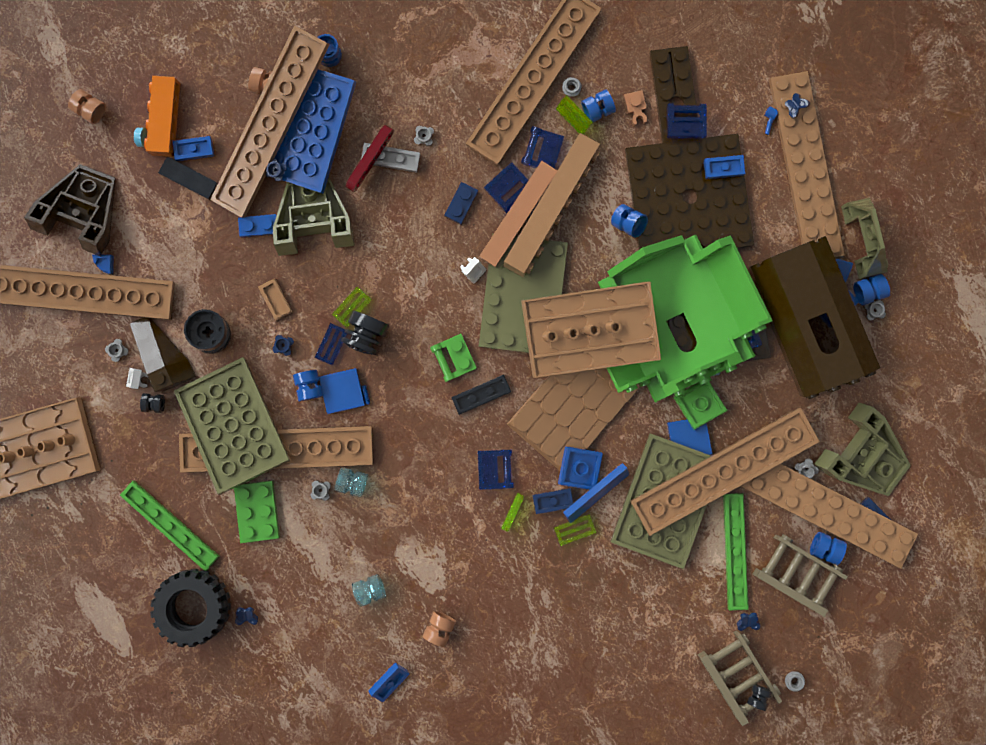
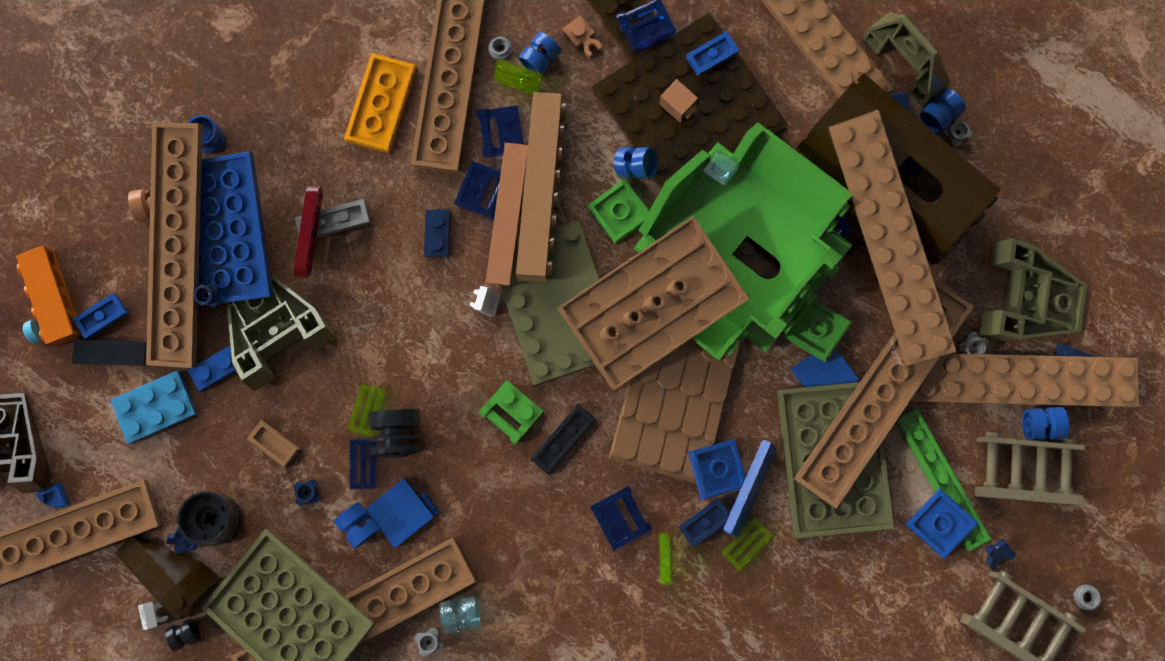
camera: 20 degrees left, 5 degrees down
(110, 349) = (105, 593): light grey plate -> none
(179, 337) = (180, 542): none -> dark blue piece
(202, 232) = (153, 407): none -> dark azure plate
(424, 140) = (353, 175): light grey plate -> none
(465, 86) = (380, 103): none -> light orange tile
(600, 250) = (619, 211): none -> bright green tile
(682, 190) = (679, 101): none -> nougat brick
(687, 256) = (721, 168): none -> clear light blue plate
(719, 581) = (942, 523): none -> blue tile
(759, 697) = (1058, 636): black wheel -> none
(784, 365) = (892, 238): none -> medium nougat plate

